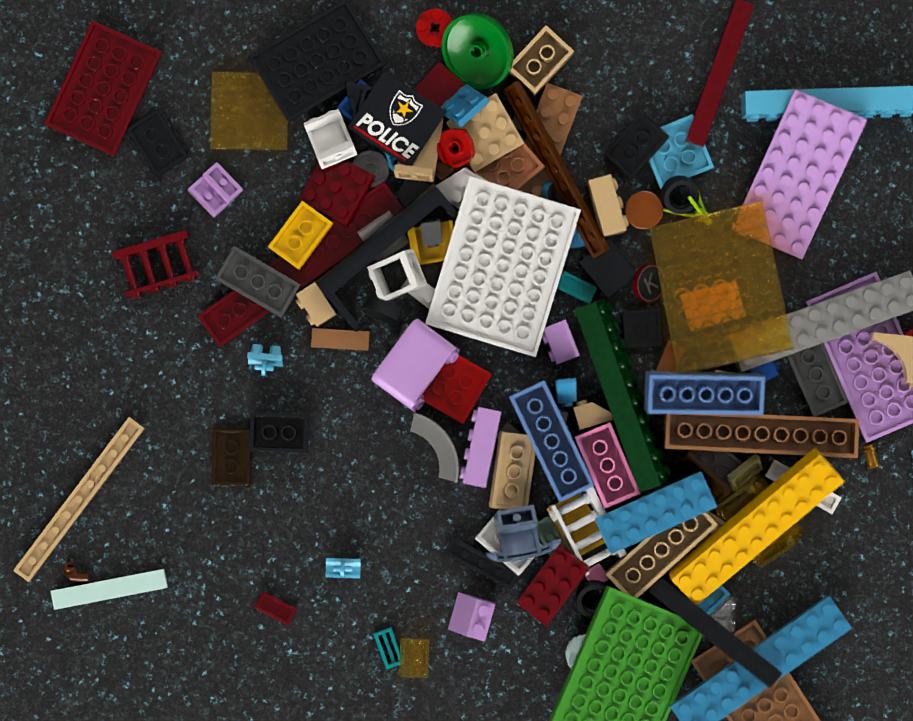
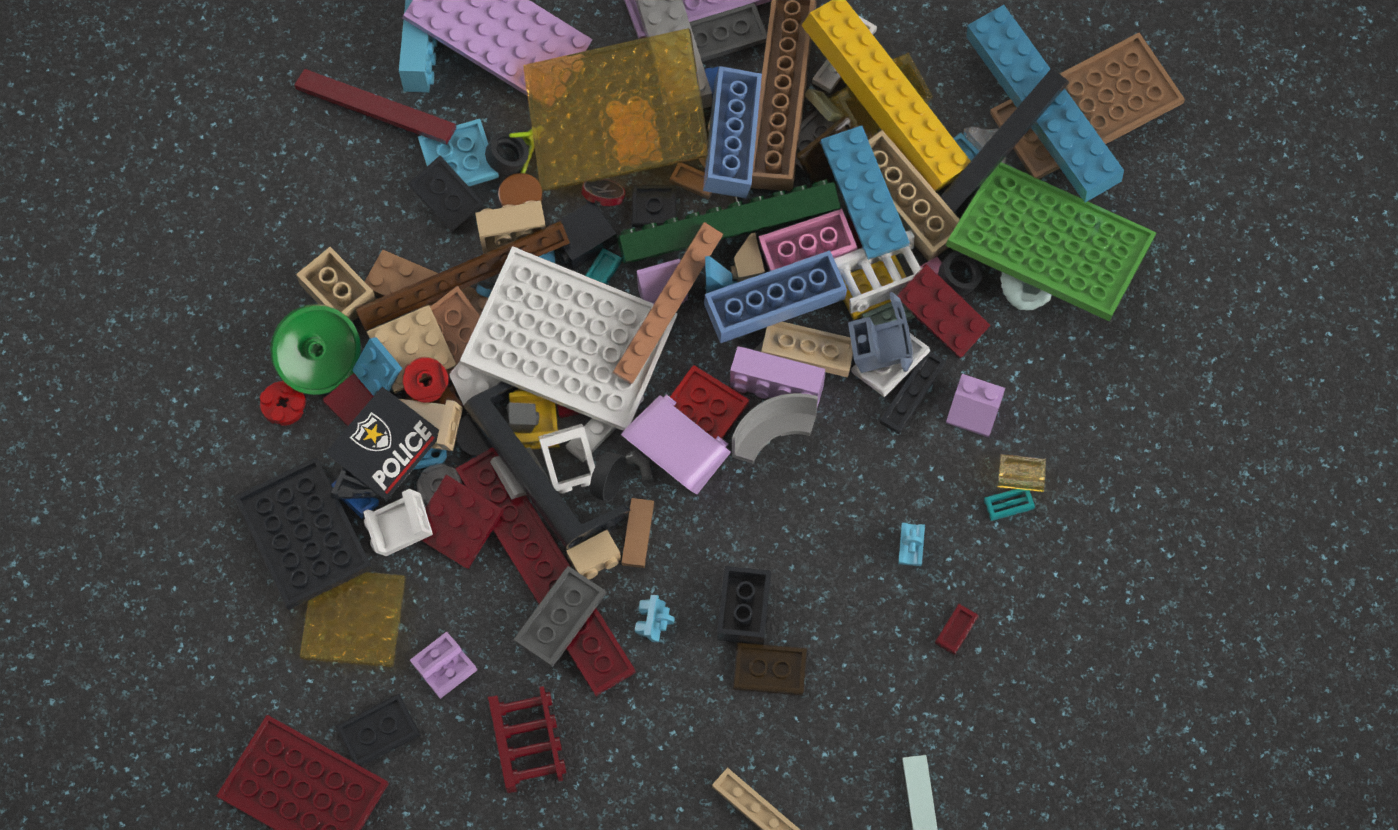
camera: 85 degrees left, 20 degrees down
(300, 235) = (509, 563): yellow plate -> none
(538, 348) = (667, 303): none -> nougat plate

